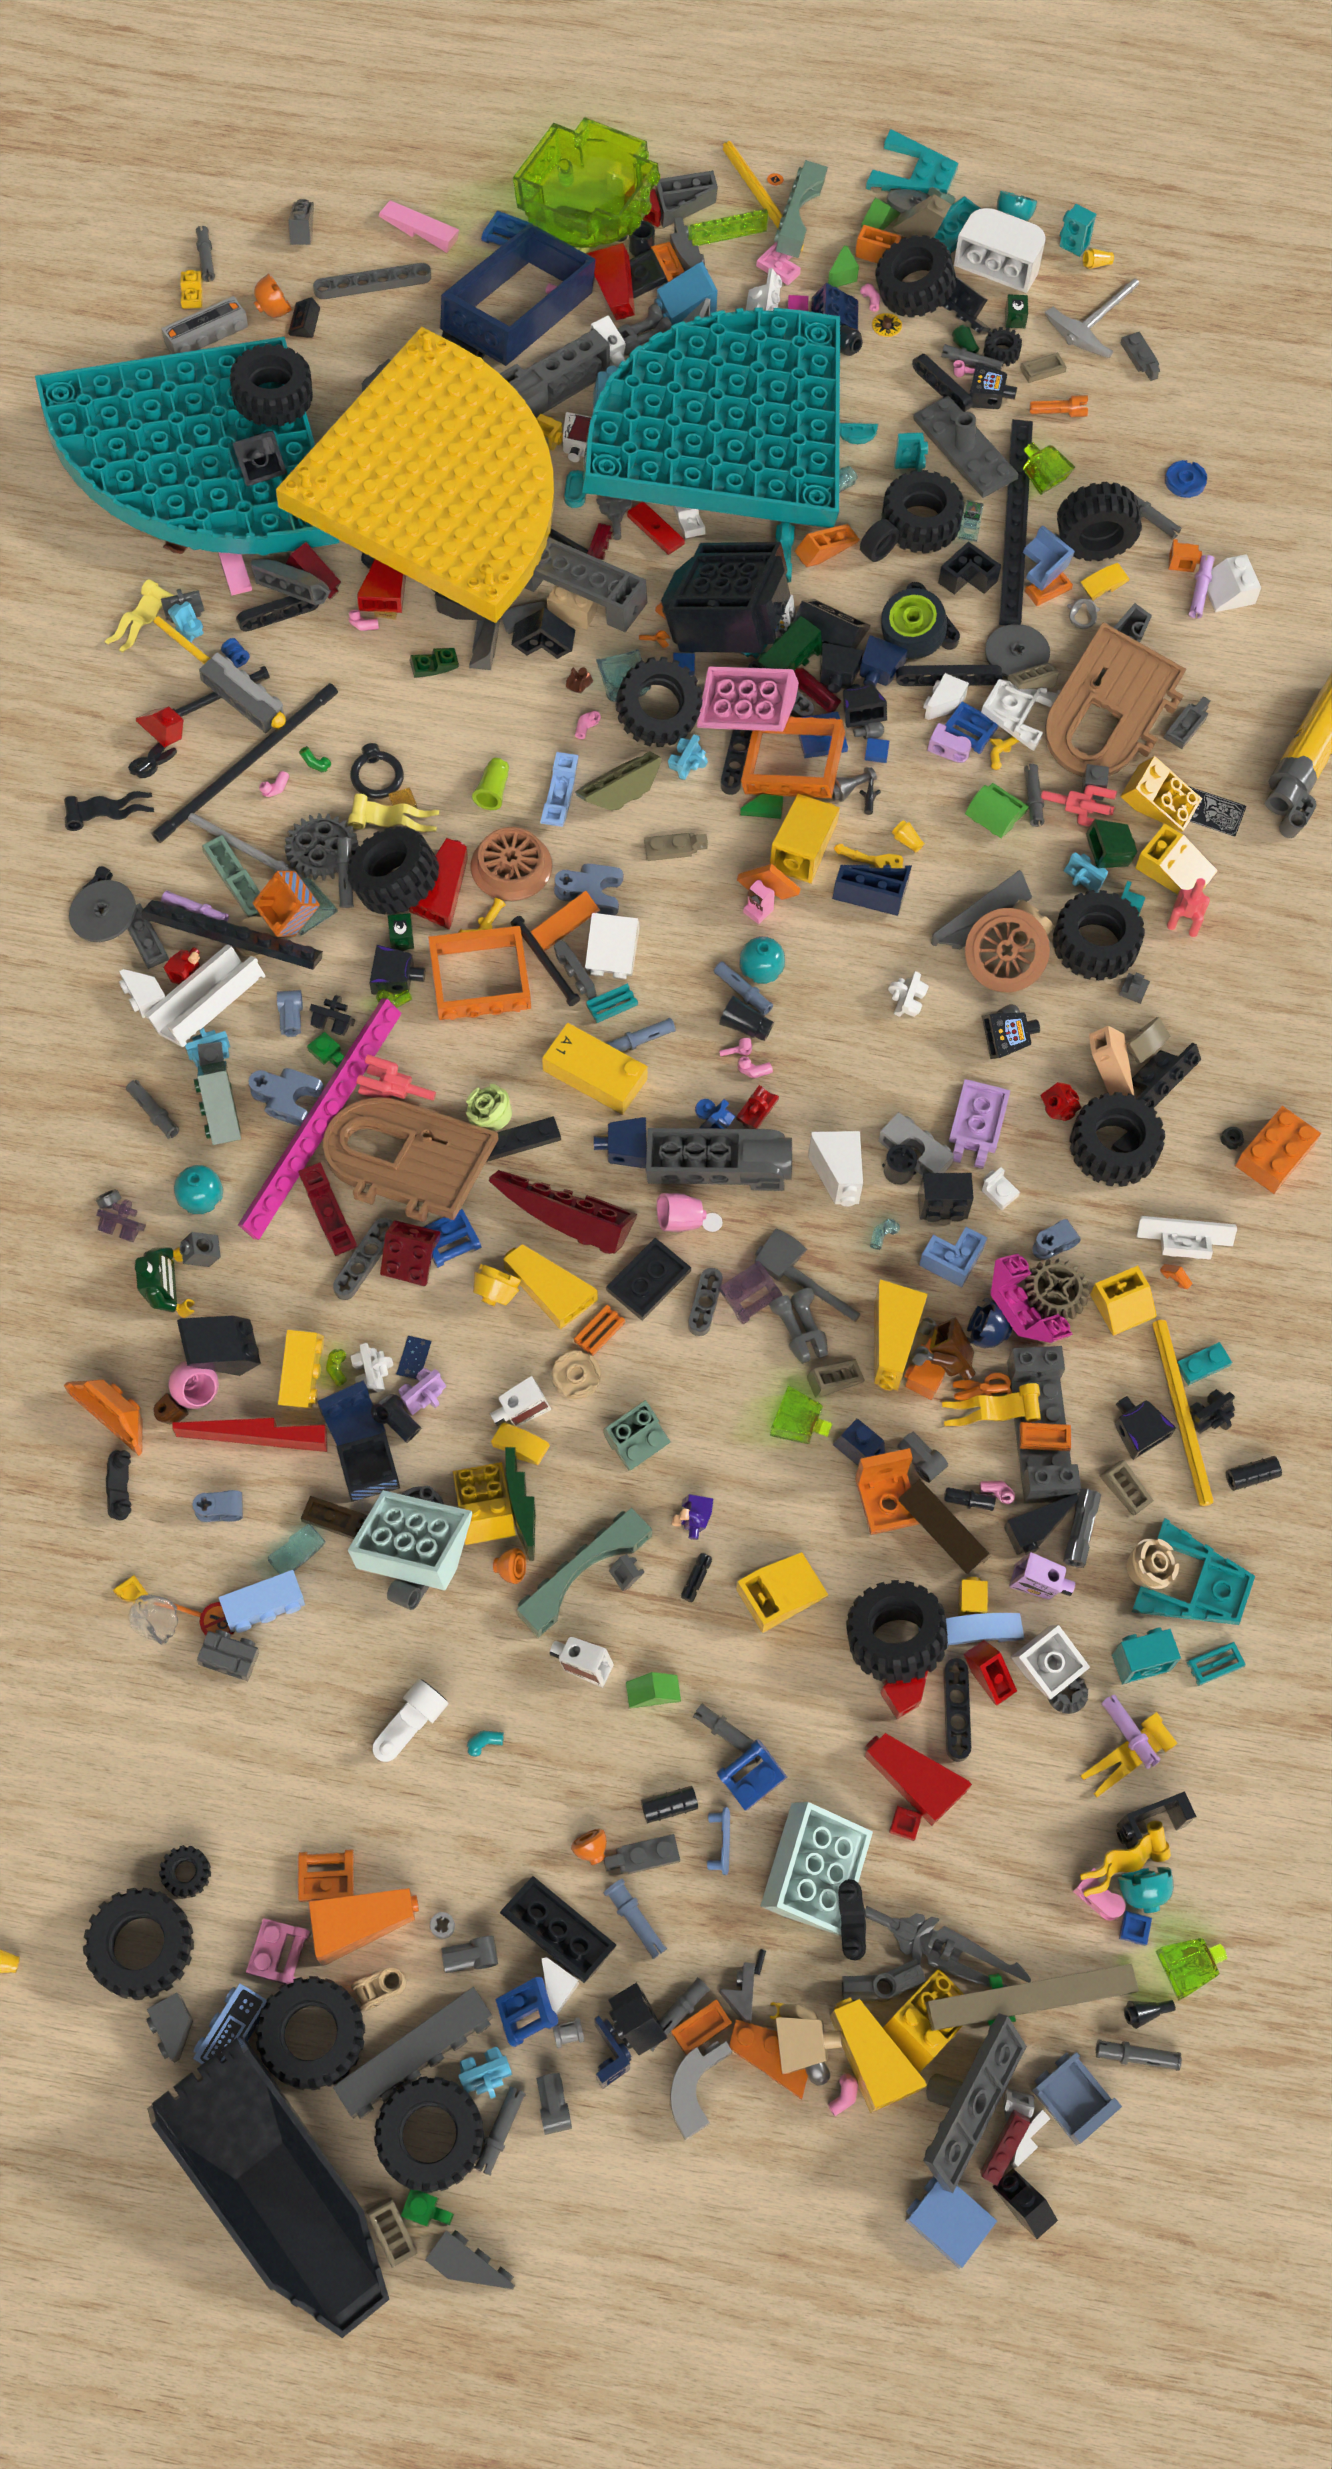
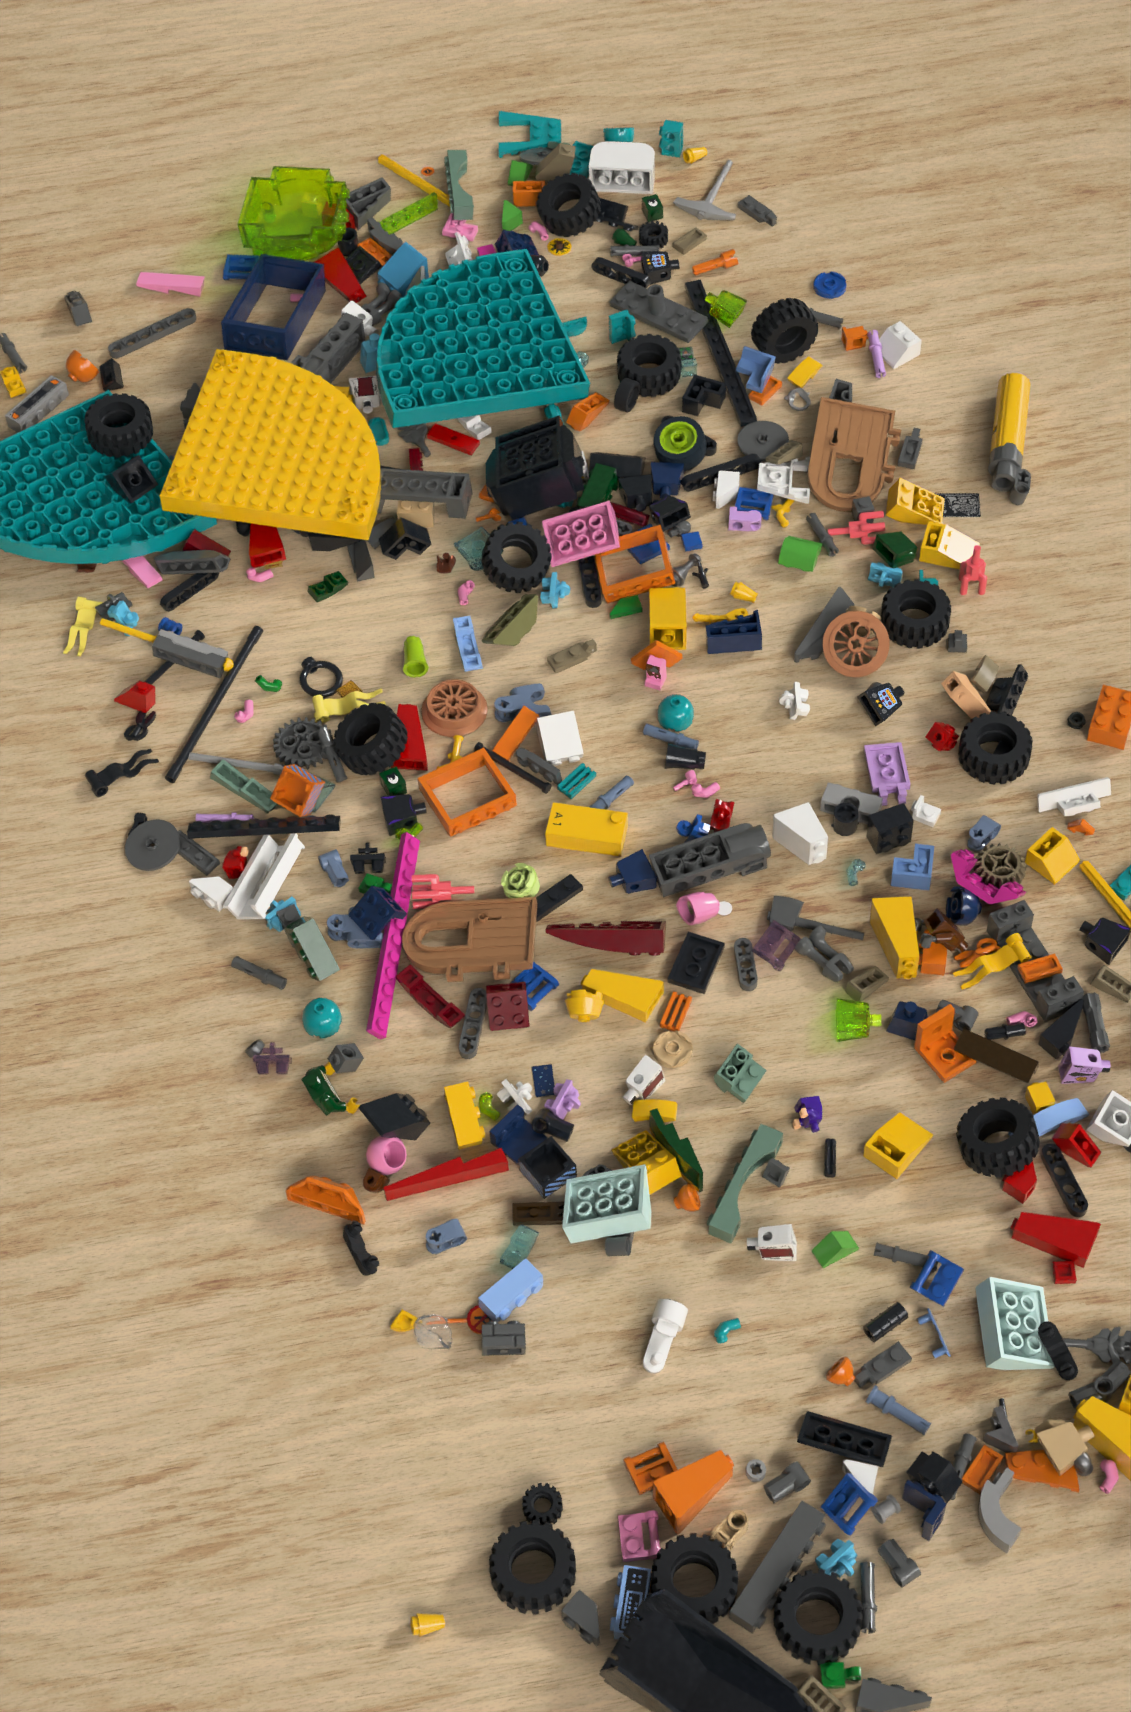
camera: 15 degrees left, 10 degrees down
(308, 1084) = (375, 911): none -> dark blue bracket

